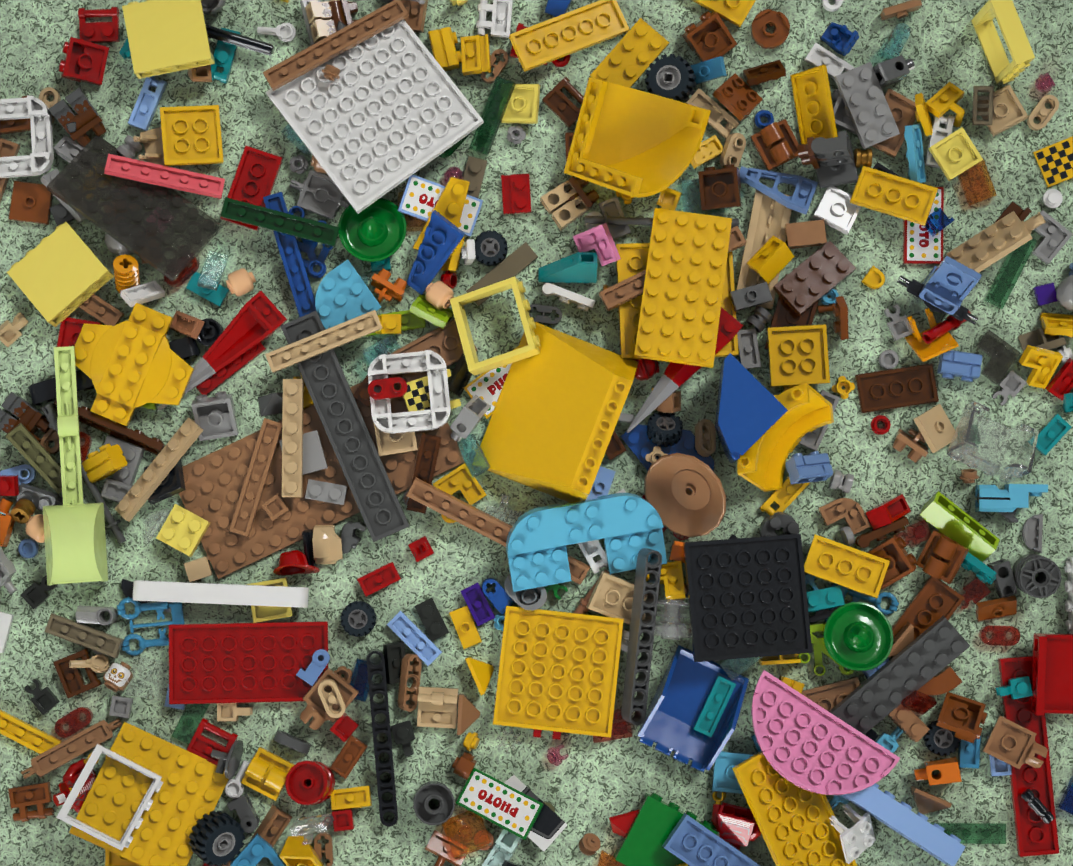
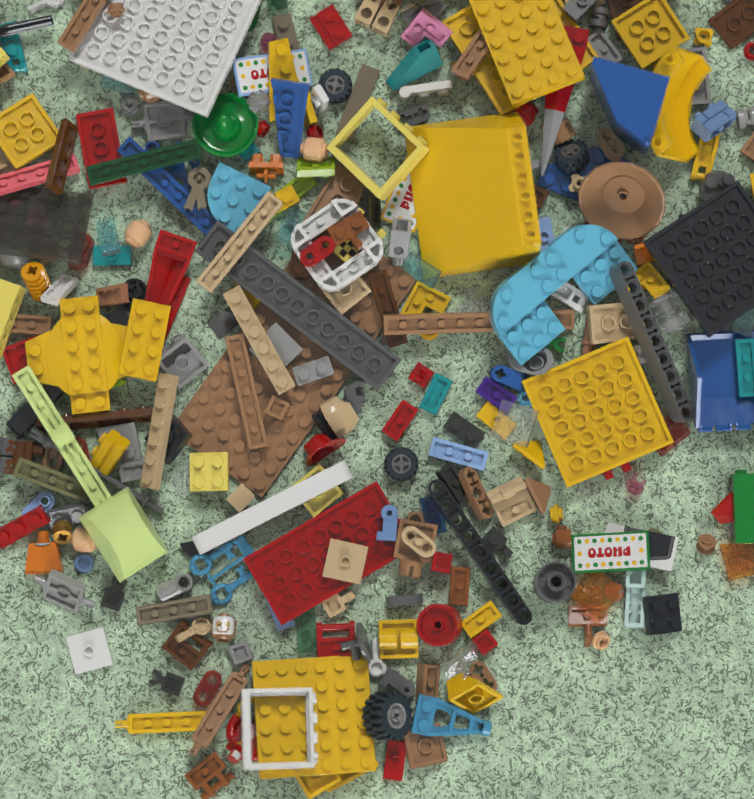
camera: 20 degrees left, 0 degrees up
(190, 381) = (144, 340): none -> yellow plate
(210, 176) = (61, 156): none -> reddish brown tile
(258, 678) = (345, 561): none -> tan plate
(321, 265) = (199, 180): none -> dark tan piece
(405, 247) = (263, 126): none -> red plate
(412, 225) = (258, 101): none -> clear gear
(424, 573) = (435, 394): none -> teal plate
(427, 384) = (349, 229): none -> dark orange plate
(478, 640) = (514, 423): none -> clear tile

